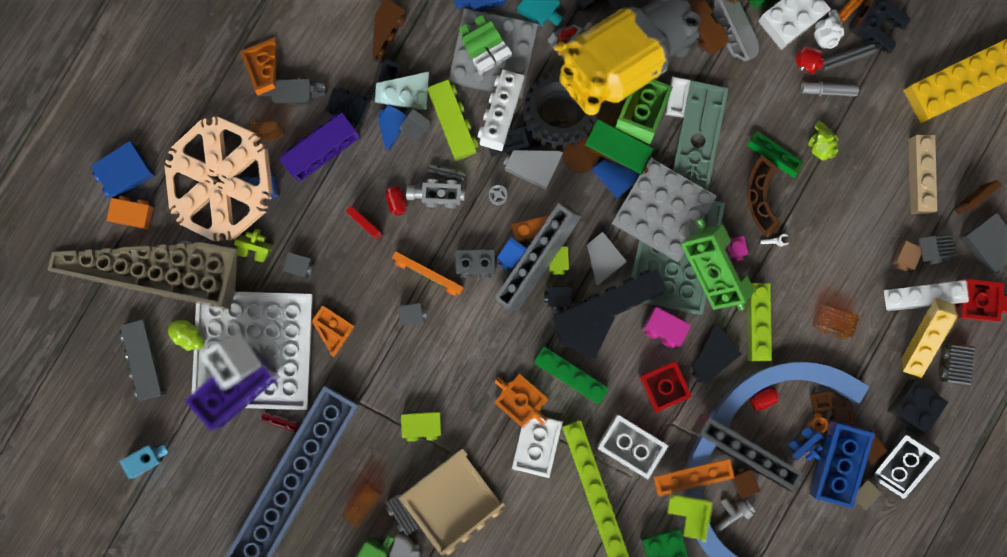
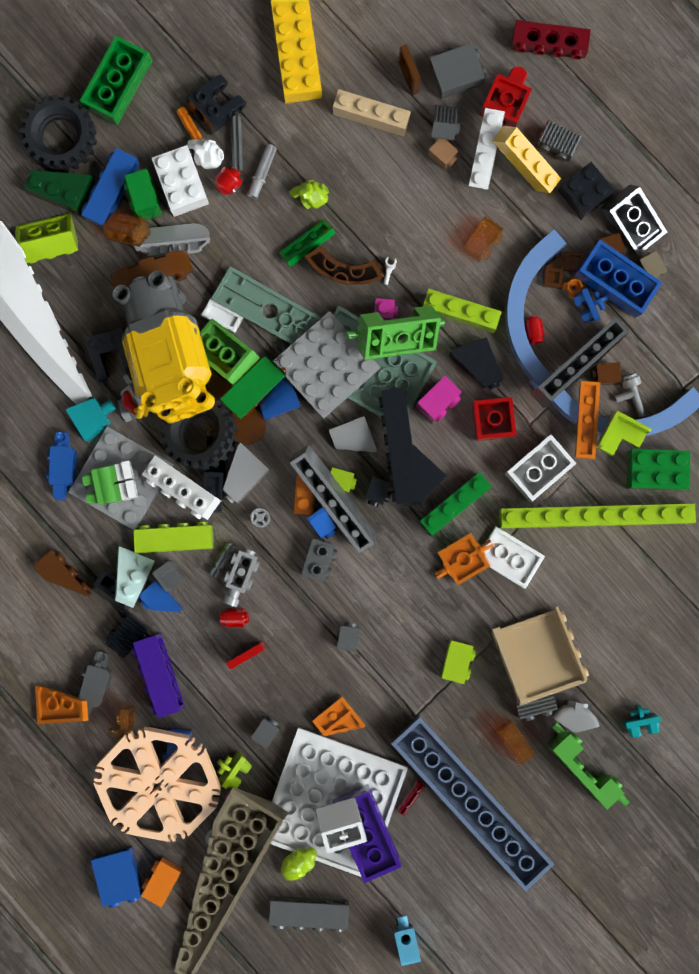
camera: 70 degrees left, 0 degrees up
(451, 287) = (295, 629): orange plate -> none

